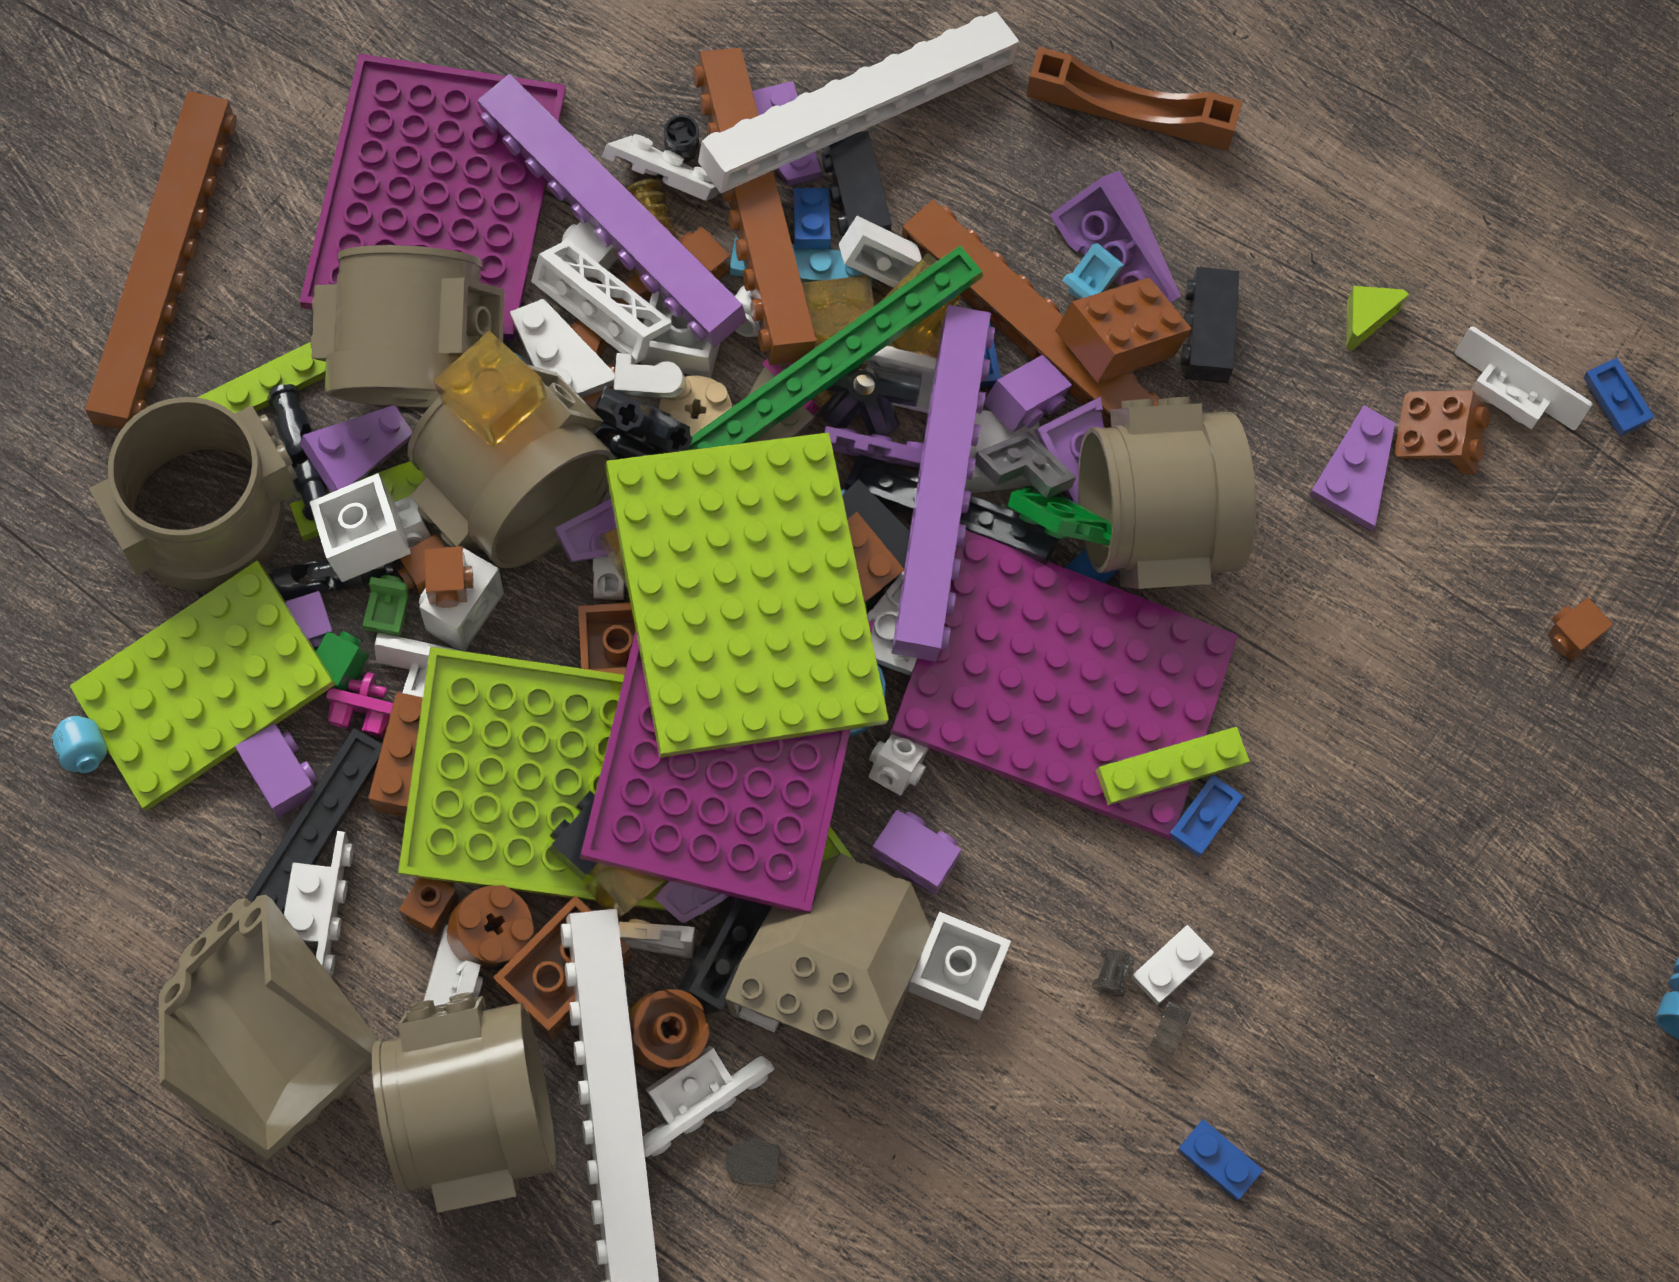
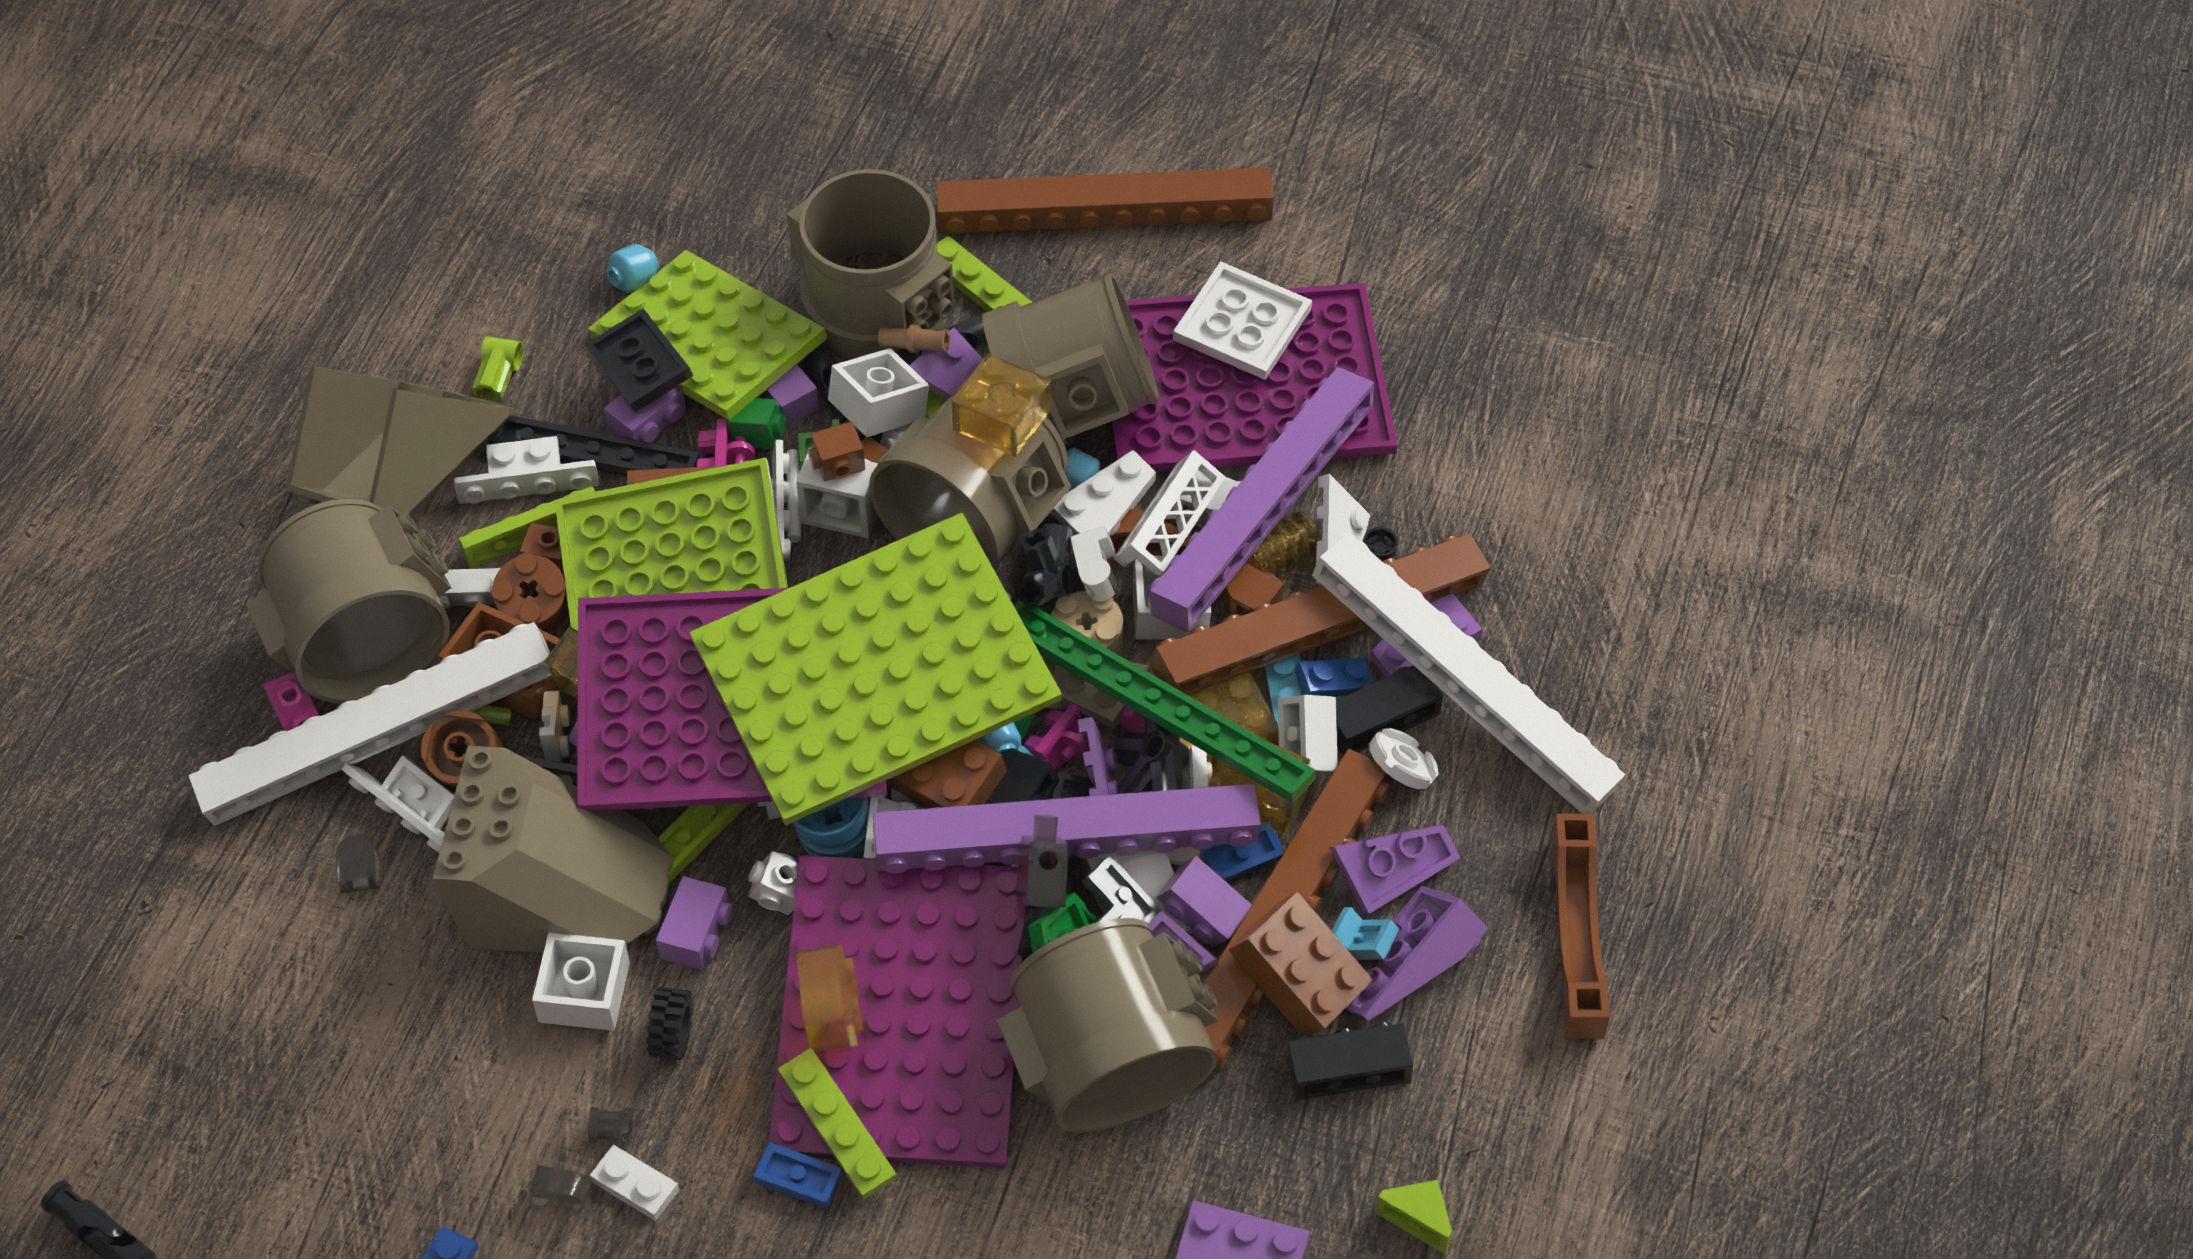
camera: 80 degrees right, 15 degrees down
(156, 908) = (498, 361): none -> lime piece
(231, 754) = (639, 360): none -> black plate
(310, 474) = (914, 339): none -> medium nougat pin
(377, 171) = (1242, 320): none -> white plate
(386, 900) = (509, 534): none -> lime plate
(555, 1194) = (289, 701): none -> dark pink hips
(922, 186) = (1402, 760): none -> white tile
(999, 506) = (1043, 881): none -> clear smoke torso
(1026, 228) = (1393, 863): none -> medium lavender wing
(1029, 892) = (669, 1023): none -> black tyre
(1069, 733) = (829, 997): none -> clear yellow brick

